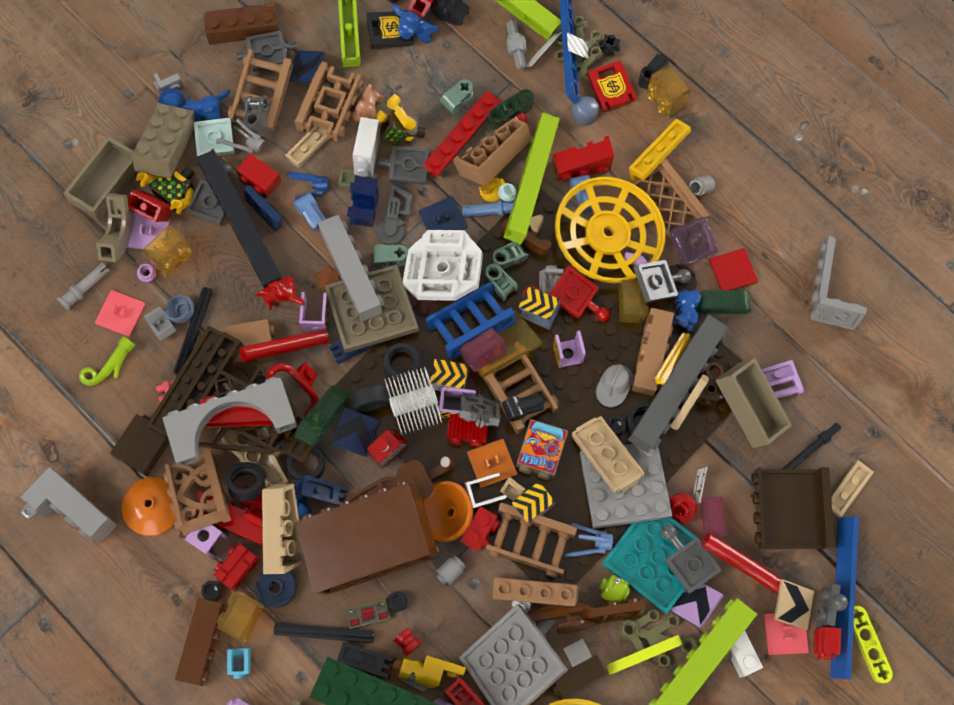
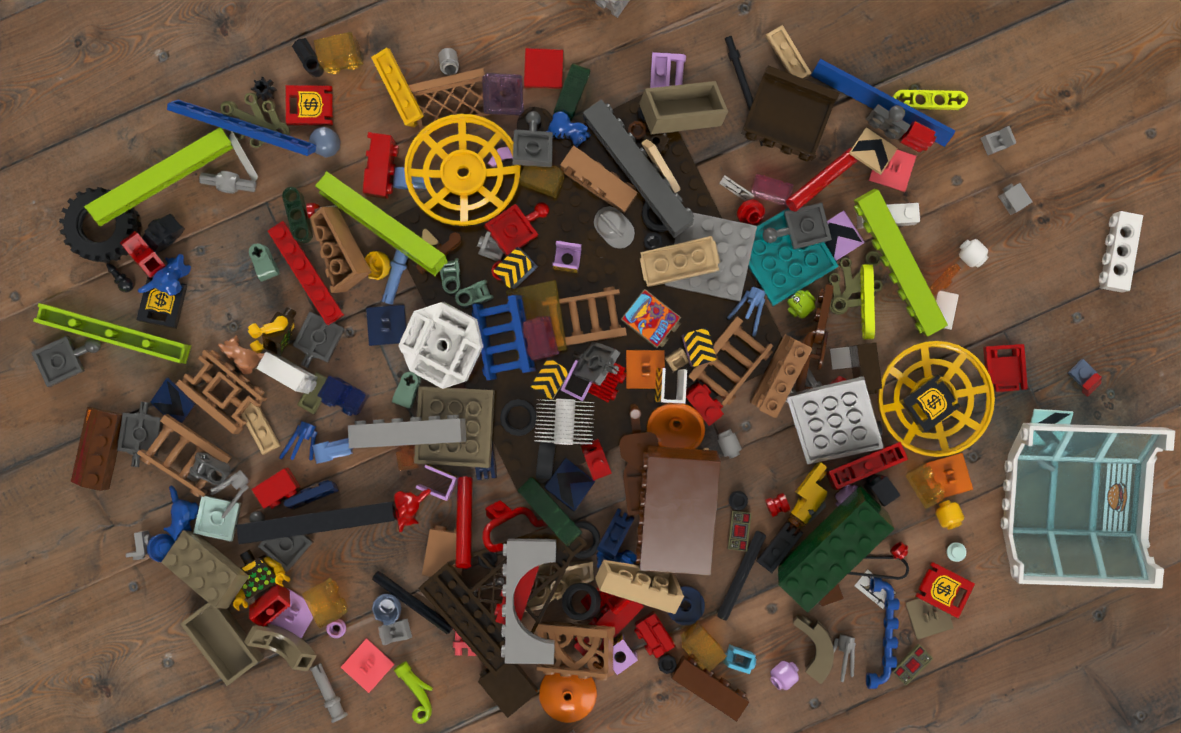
camera: 65 degrees left, 15 degrees up
(391, 229) = (379, 378): dark grey piece -> none
(507, 192) = (388, 254): light aqua plate -> none
(517, 407) = (608, 327): black piece -> none
(577, 46) = (256, 122): sticker -> none
(672, 359) = (613, 164): yellow axle -> none

